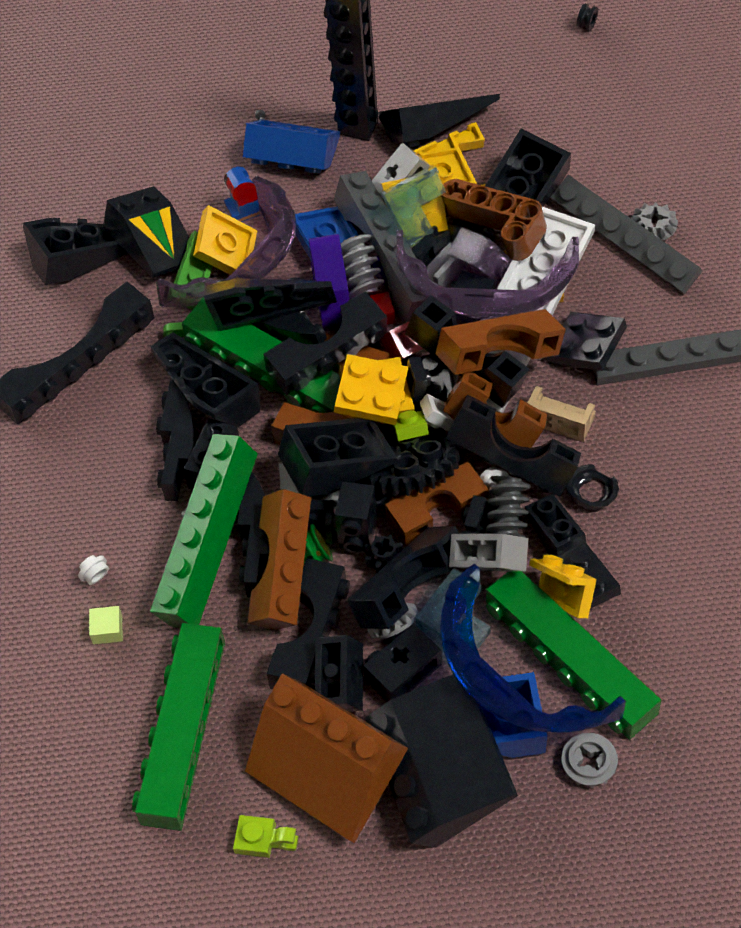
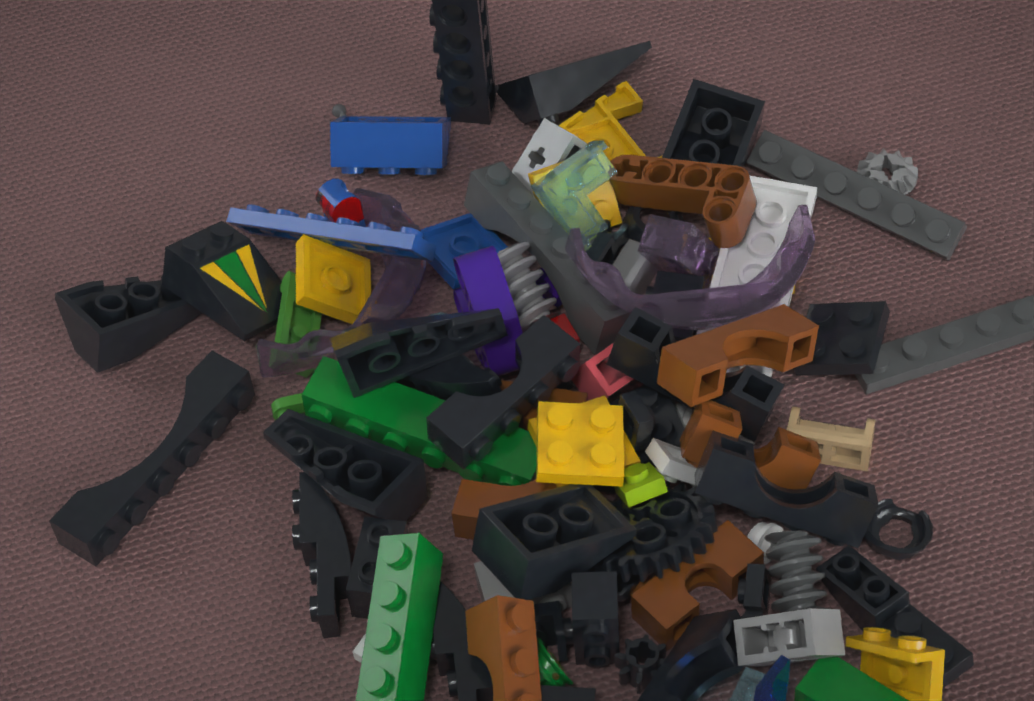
camera: 10 degrees left, 5 degrees down
(236, 208) = (342, 234): none -> plate

